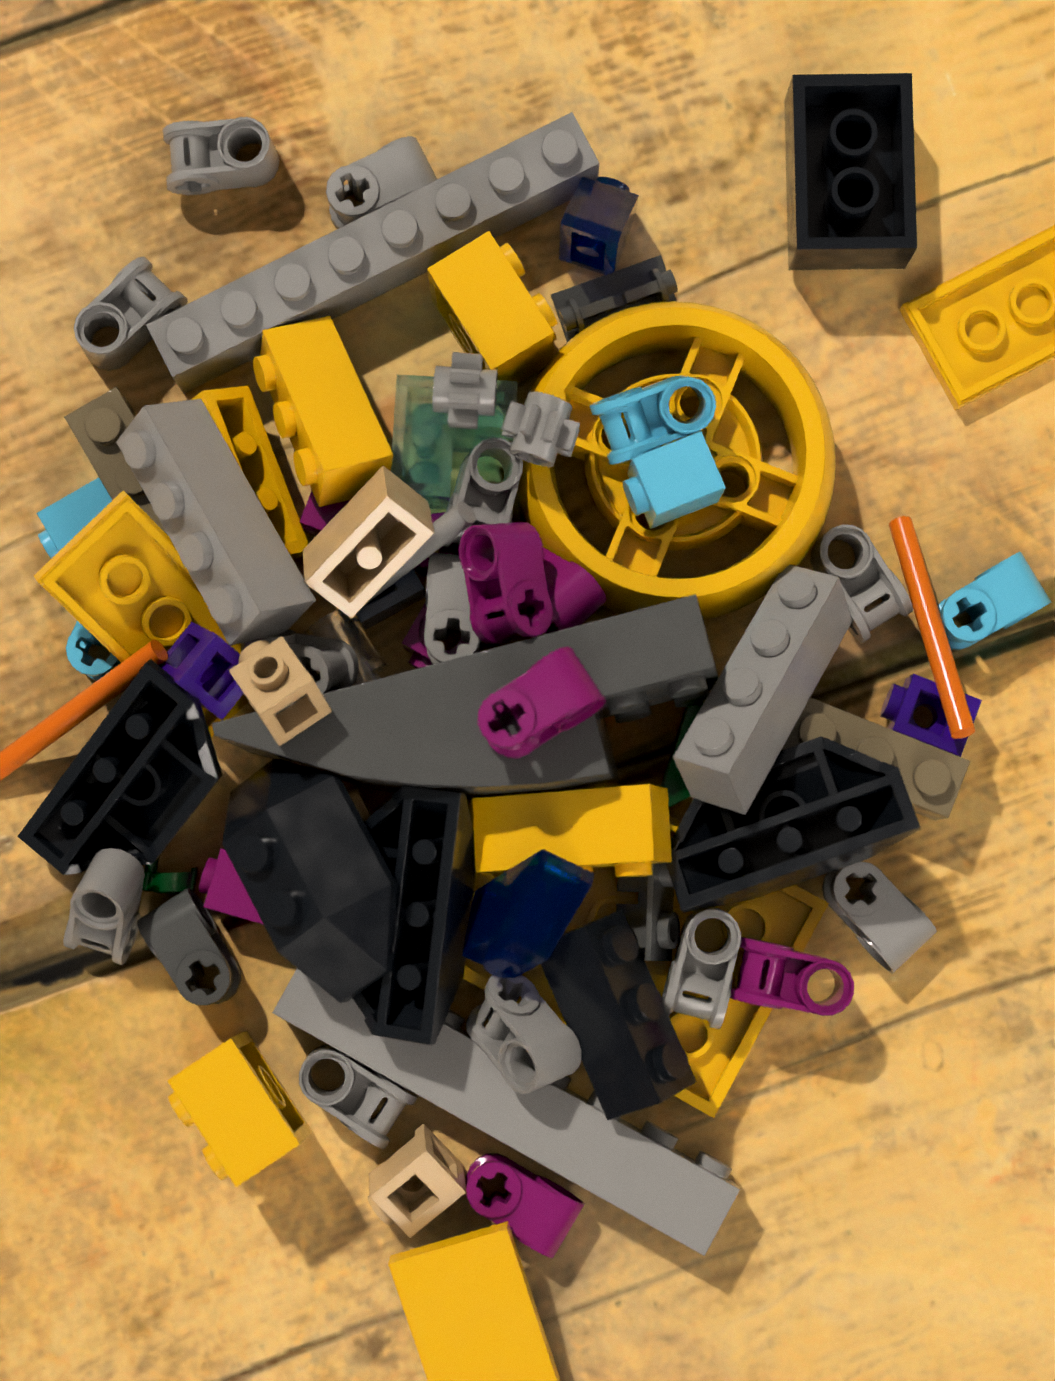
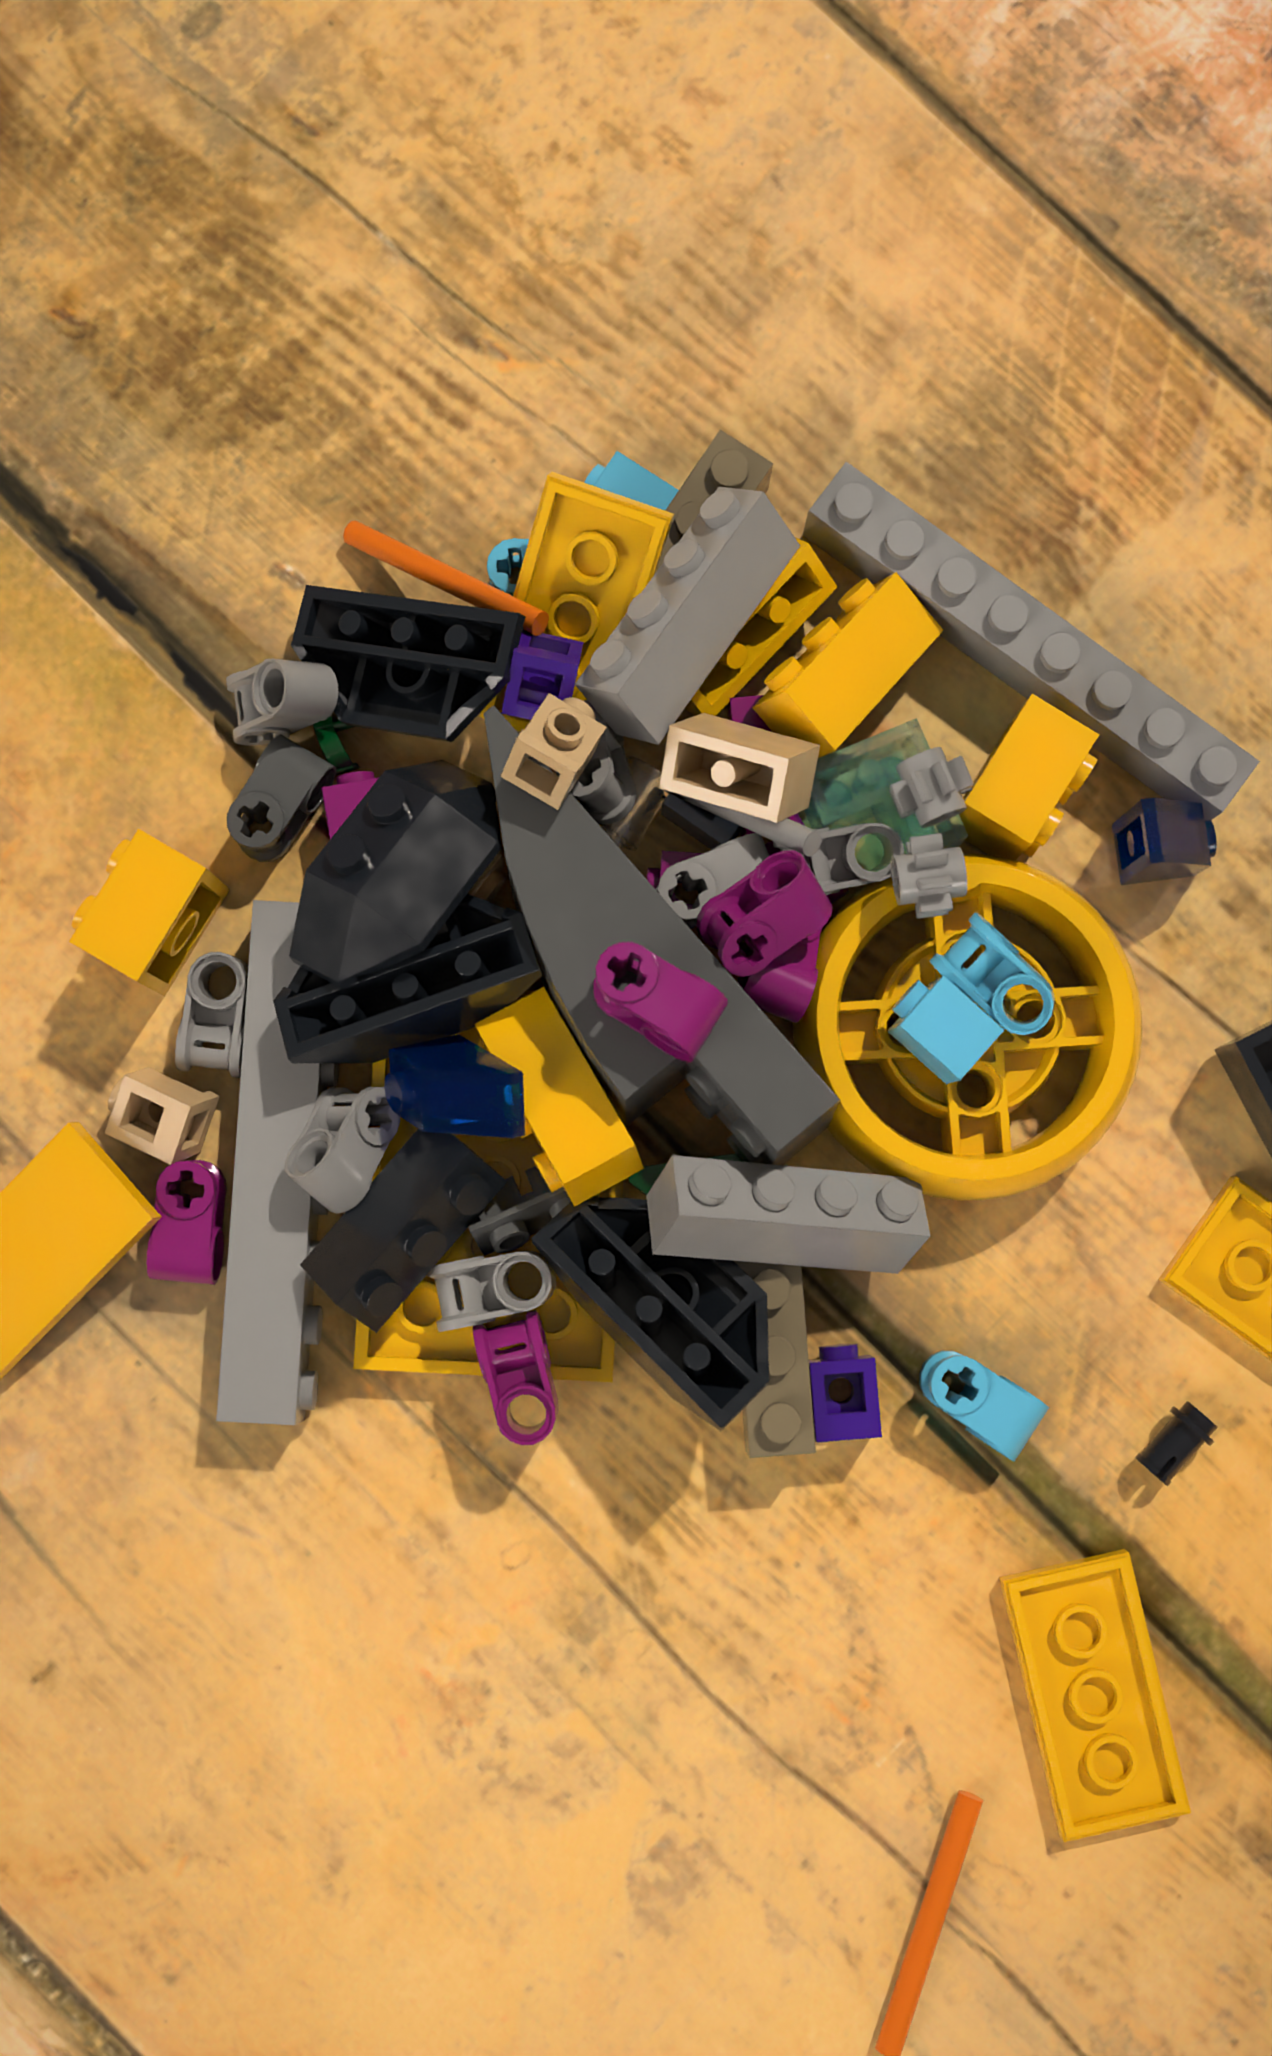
camera: 60 degrees right, 0 degrees up
(127, 309) = (855, 439): light grey piece -> none
(207, 151) = (1041, 442): light grey piece -> none
(378, 180) = (1100, 611): light grey piece -> none
(612, 293) = (1104, 889): dark grey hinge -> none
(864, 581) = (940, 1267): light grey piece -> none
(883, 920) = (624, 1443): light grey piece -> none
(931, 628) = (928, 1354): orange bar -> none

